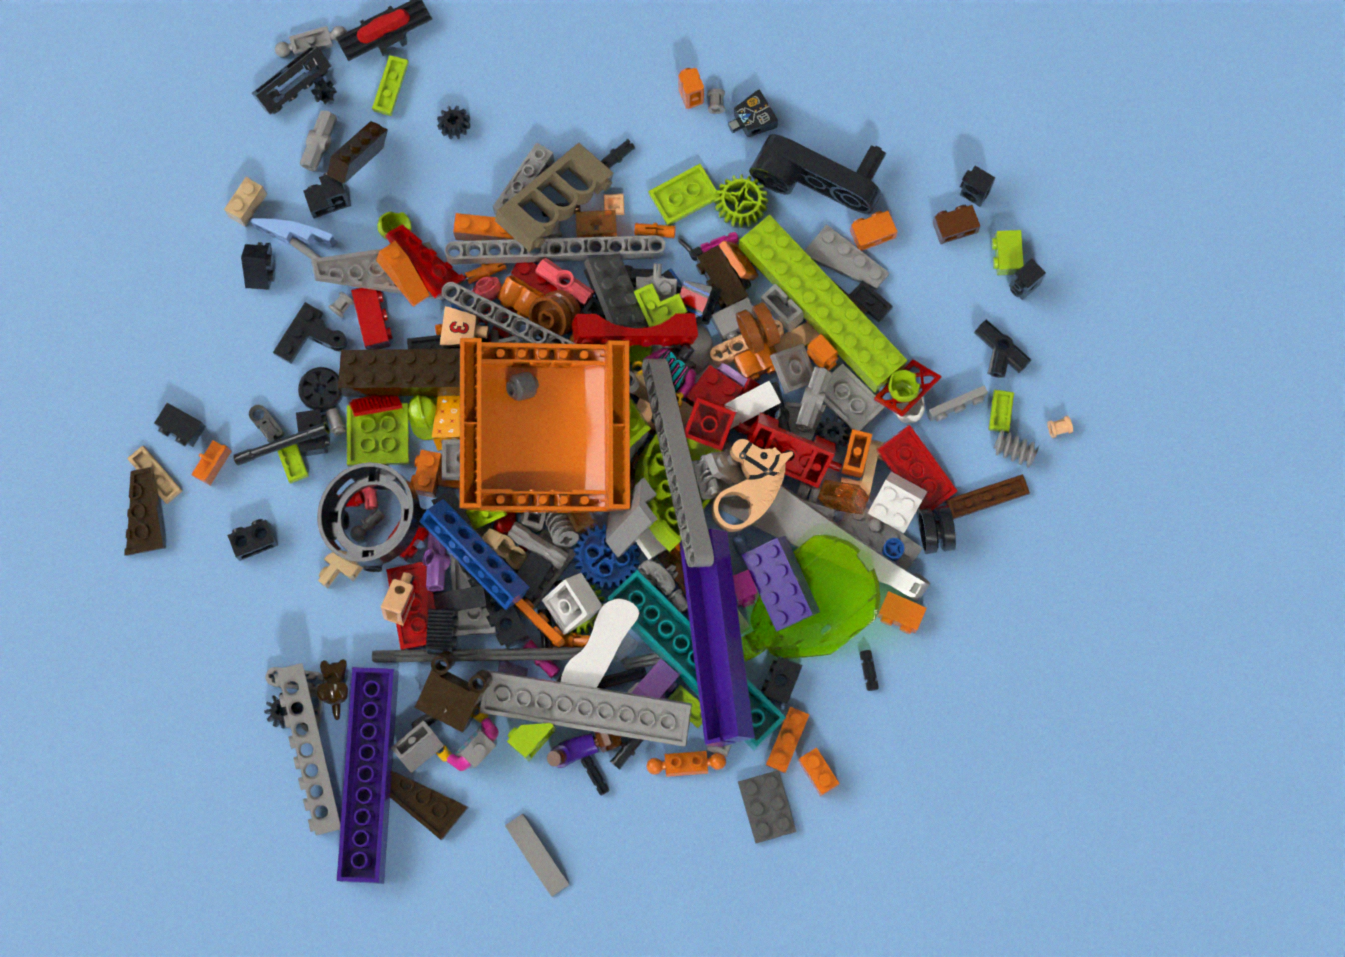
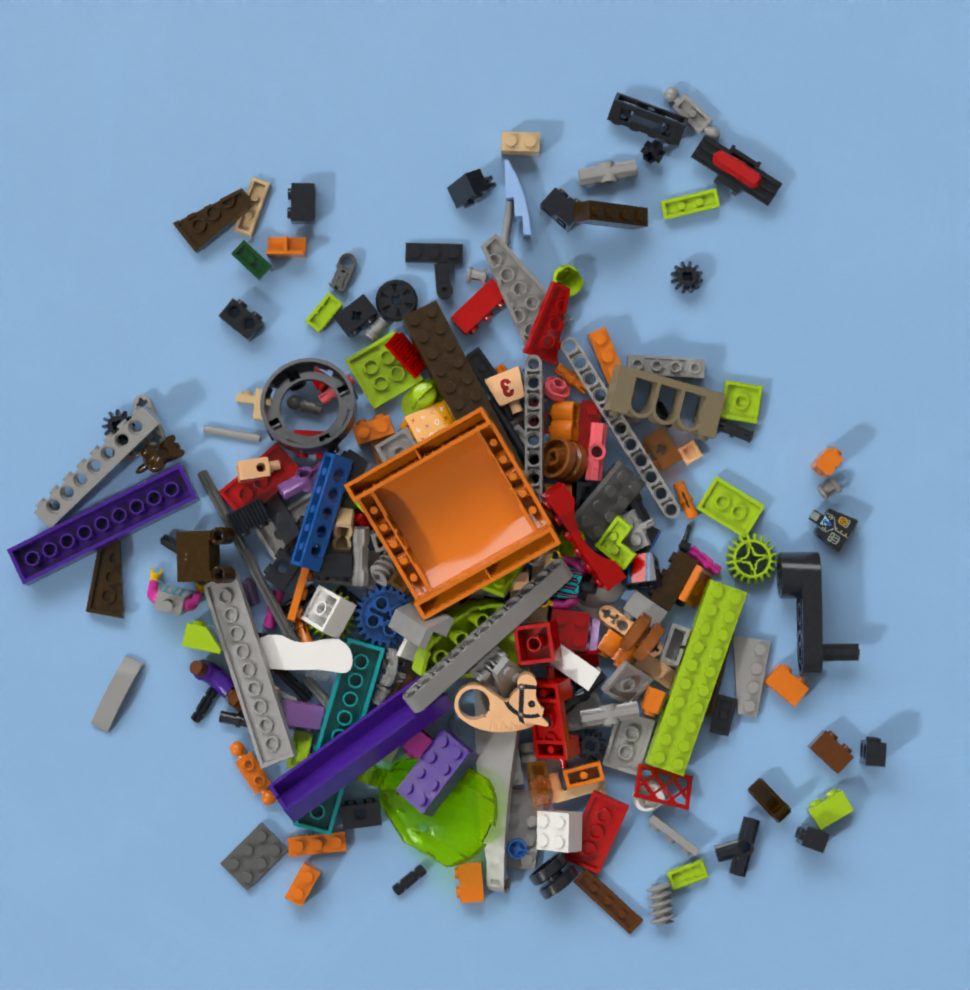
camera: 60 degrees right, 10 degrees up
(203, 498) = (251, 260): none -> dark green panel
(311, 433) = (310, 276): black piece -> none
(353, 608) = (231, 433): none -> light grey bar
(402, 273) = (527, 314): orange slope -> none
(417, 746) = (147, 551): light grey brick -> none
(522, 386) = (477, 474): dark grey head -> none
(594, 134) = (741, 402): none -> lime plate
(903, 386) = (659, 784): lime hair -> none
(972, 301) = (769, 800): none -> dark brown animal
(1060, 426) = (700, 930): light nougat bush -> none

